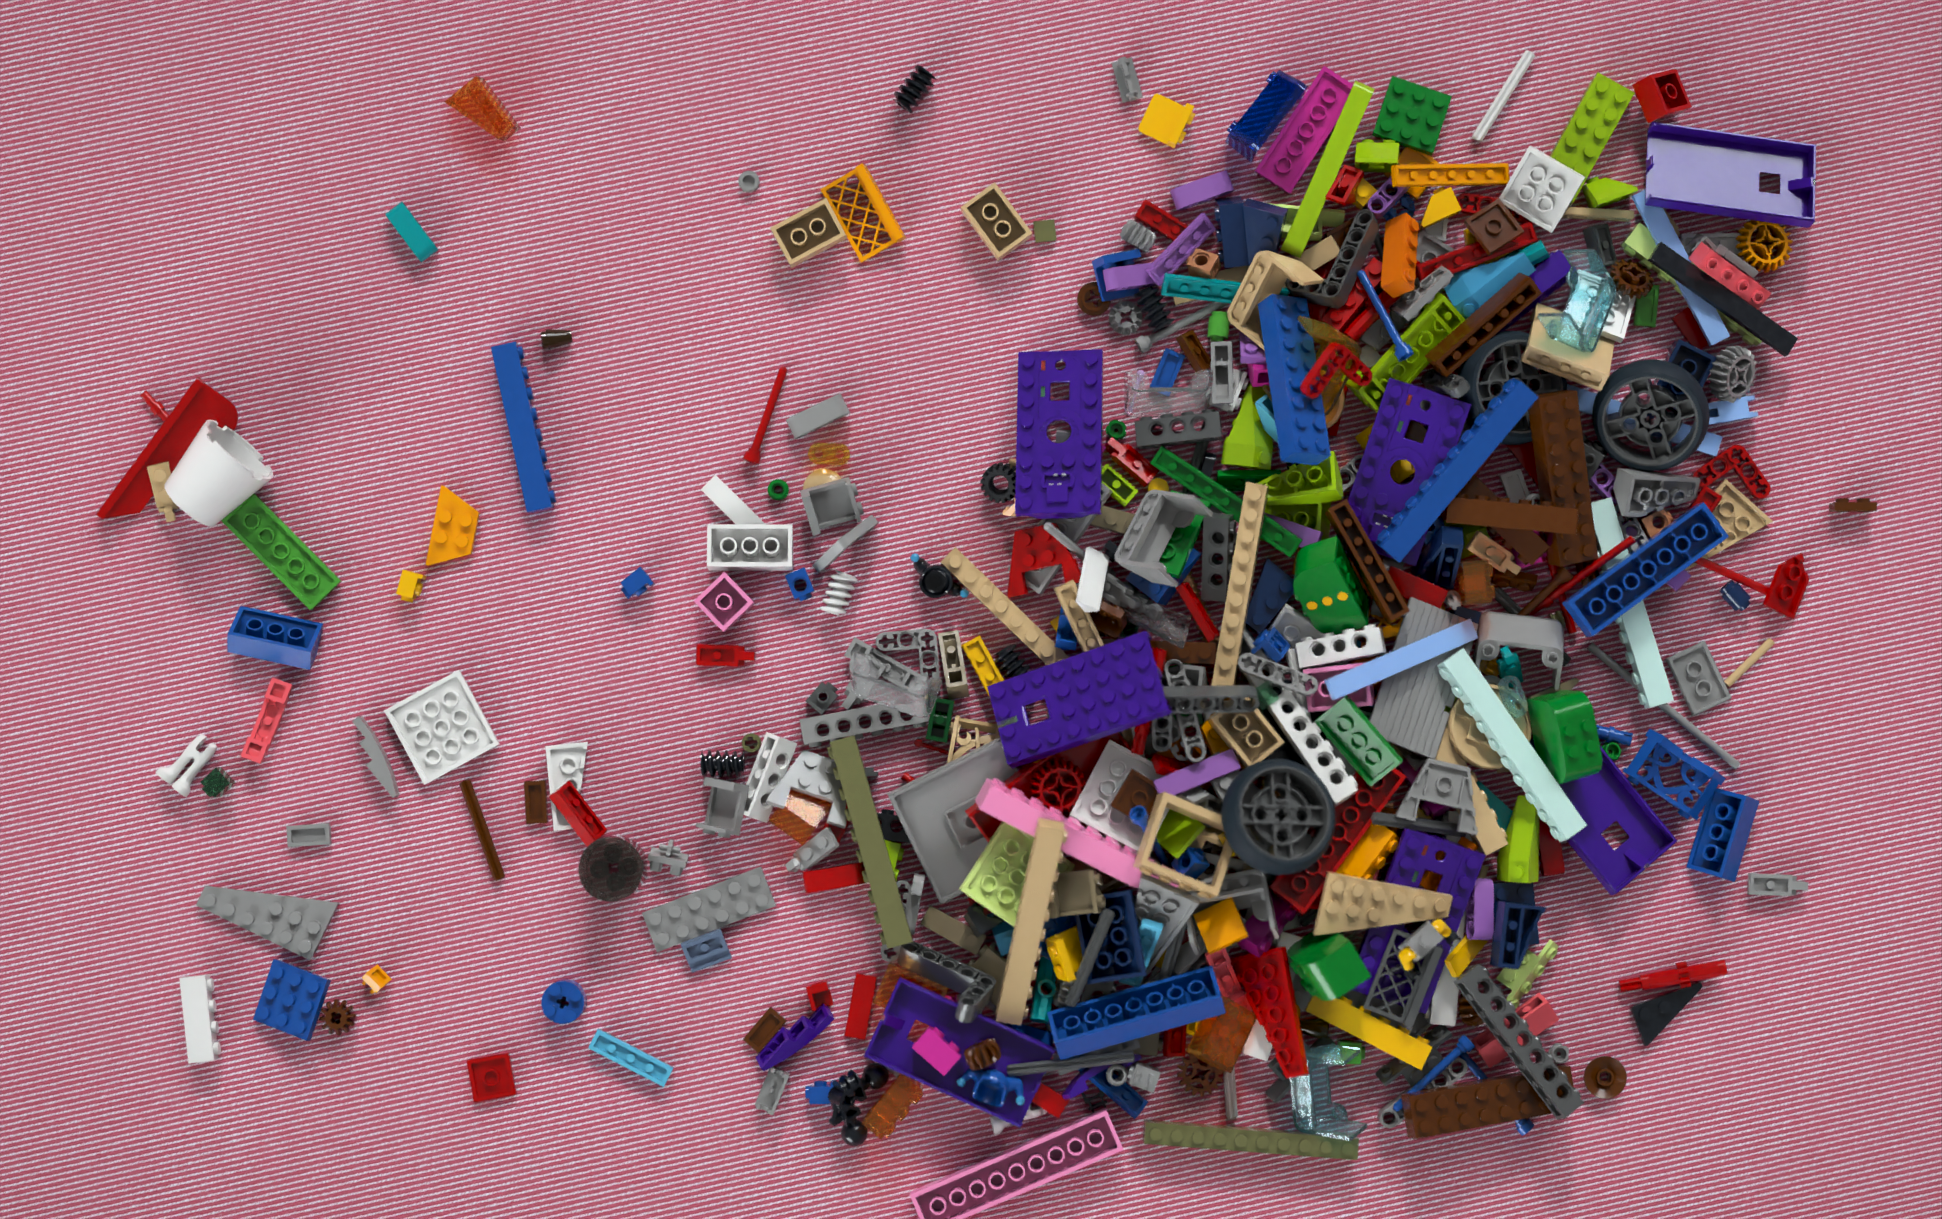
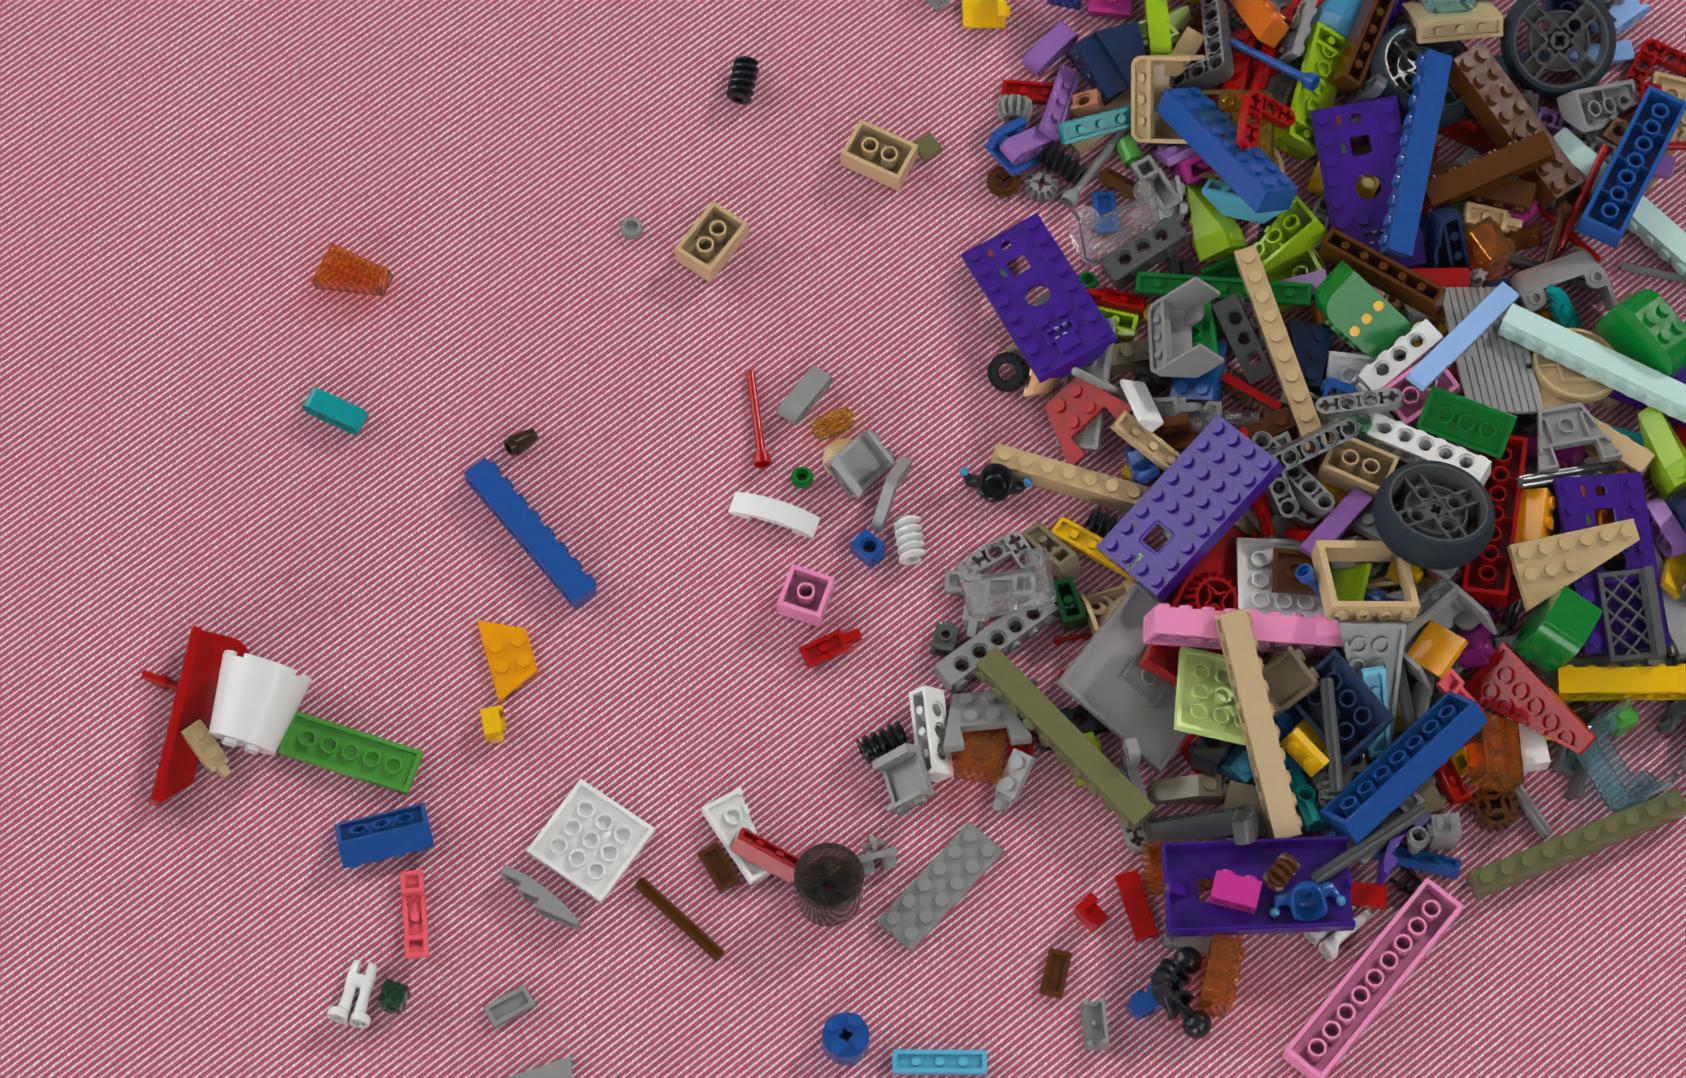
camera: 25 degrees left, 20 degrees down
(636, 583) = (712, 619): blue brick -> none
(706, 950) = (958, 924): sand blue plate -> none
(749, 547) = (804, 535): white slope -> none
(755, 737) = (899, 707): olive bush -> none
(790, 1041) = (1087, 968): dark purple slope -> none
(833, 877) = (1045, 797): red beam -> none
(880, 205) = (766, 192): light orange fence -> none
(1421, 942) = (1629, 569): torso -> none
(1512, 696) = (1578, 324): clear light blue plate -> none

